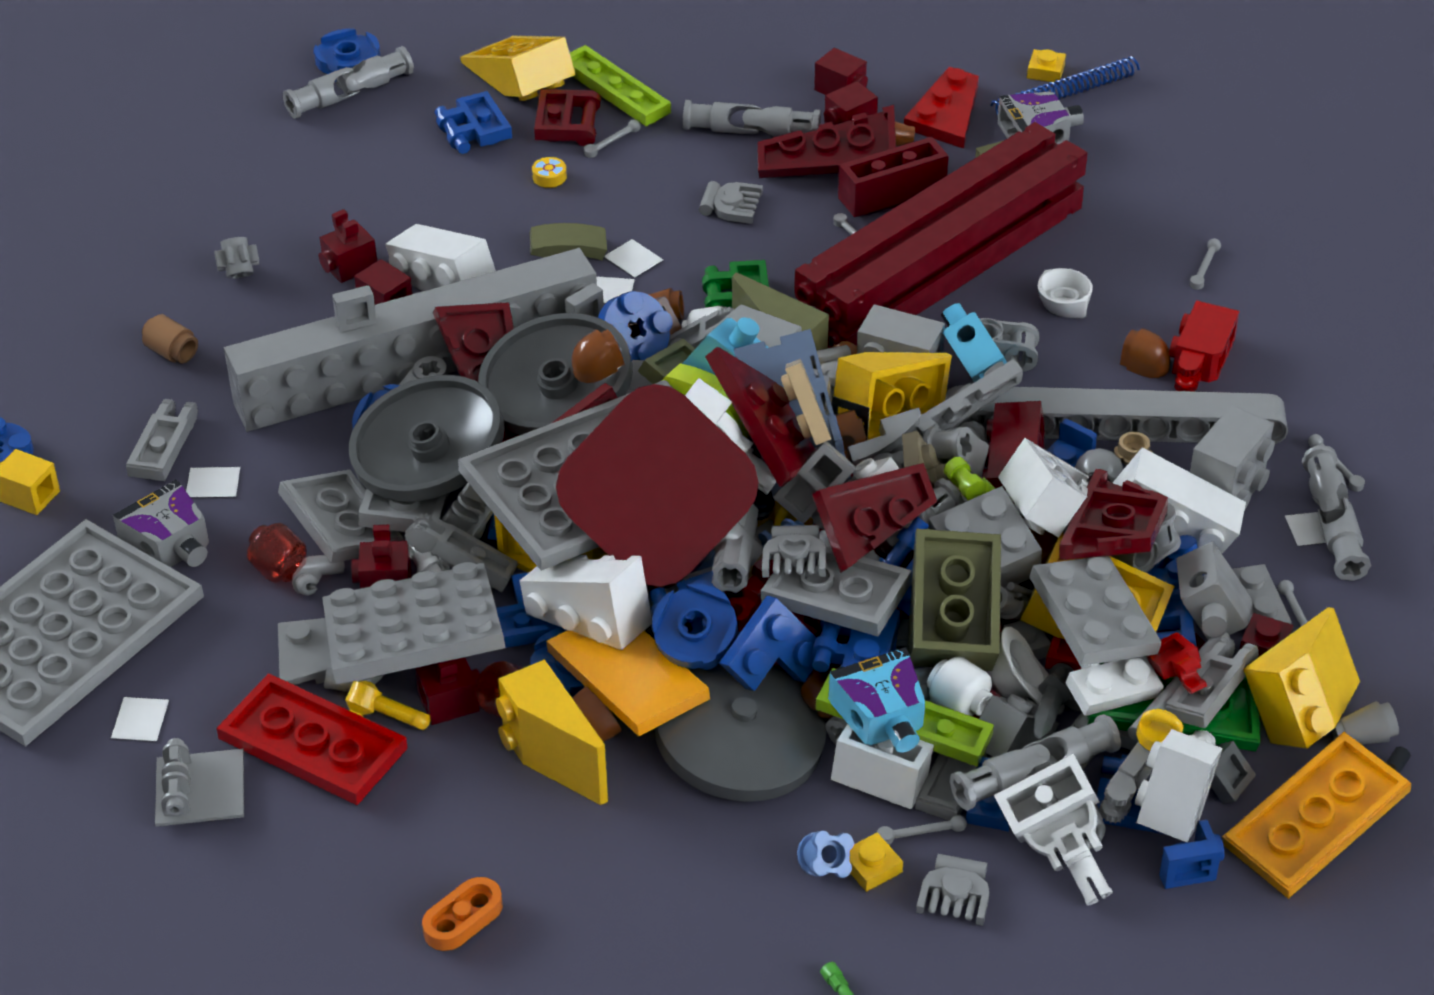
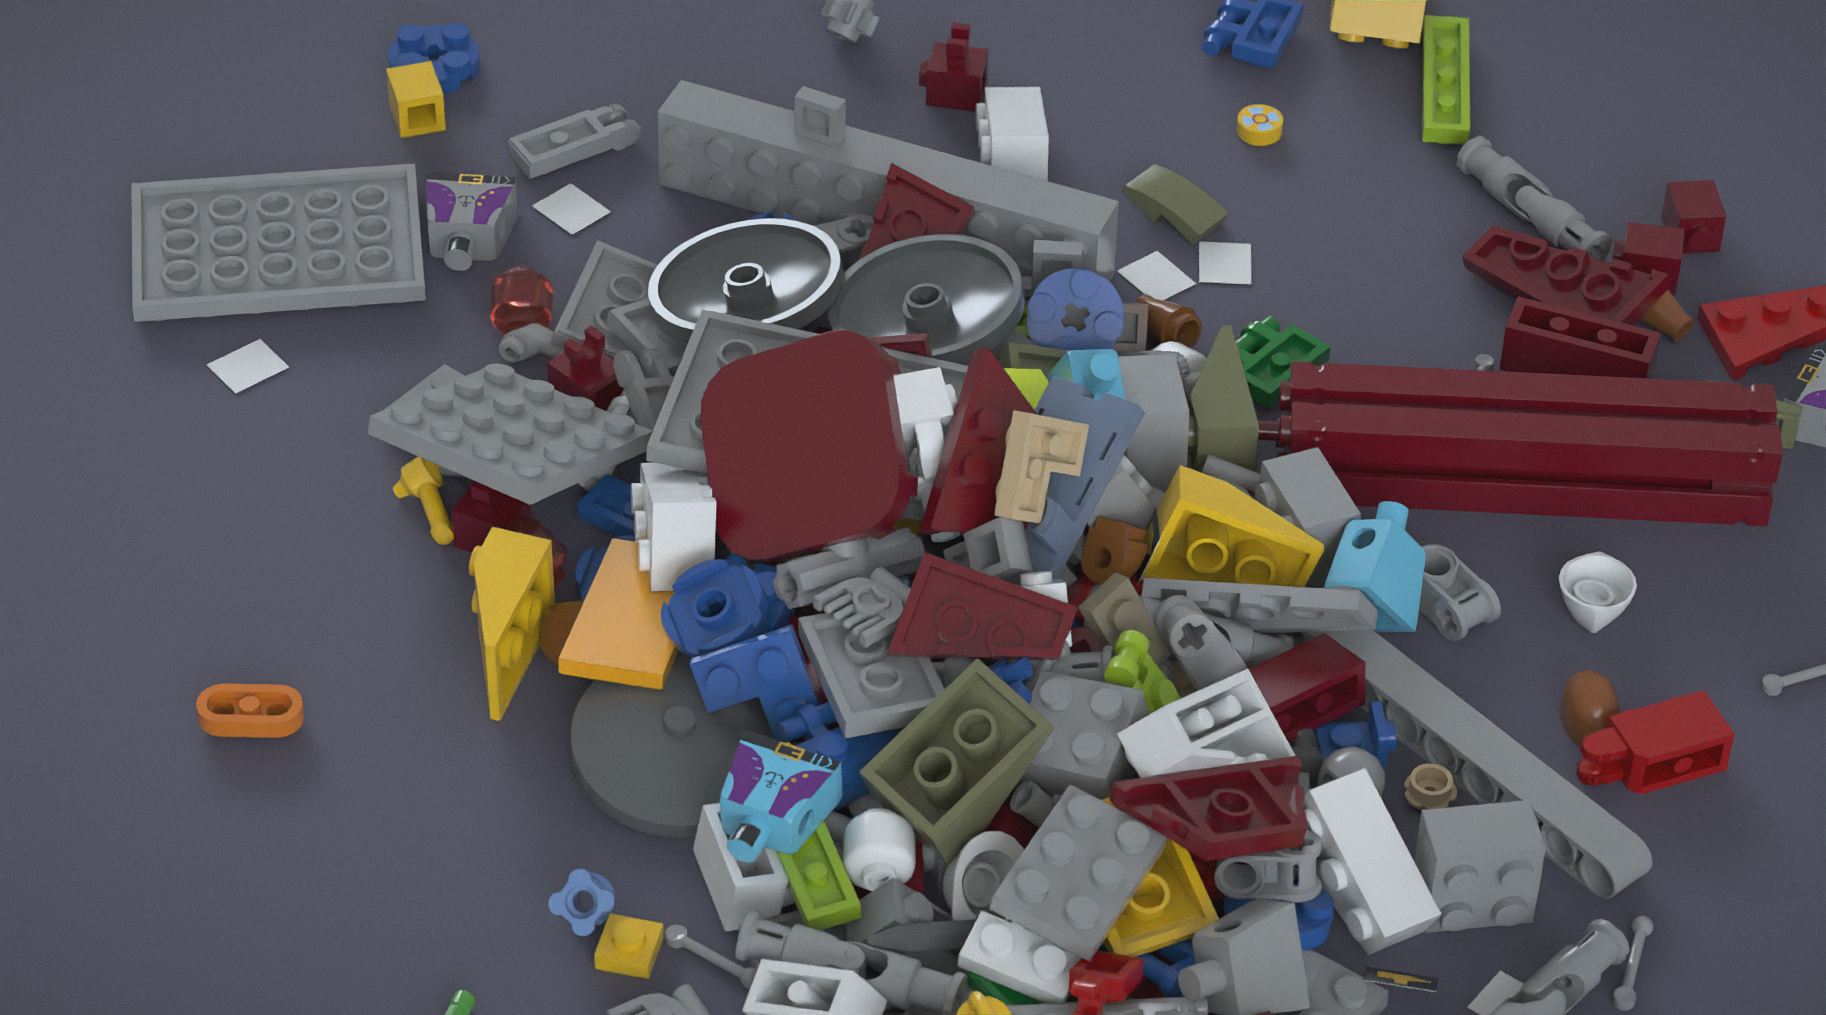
camera: 45 degrees right, 0 degrees up
(169, 339) = (697, 53): medium nougat brick -> none
(198, 785) = (207, 449): light grey hinge -> none
(312, 738) = (337, 481): red plate -> none
(385, 282) = (937, 125): dark red brick -> none
(556, 113) = (1348, 68): dark red plate -> none
(592, 150) = (1336, 131): light grey hinge -> none
(596, 357) = (959, 305): dark orange piece -> none
(732, 201) = (1394, 267): light grey piece -> none
(891, 436) = (1146, 572): light grey slope -> none
(1260, 553) = (1401, 979): none -> black sticker

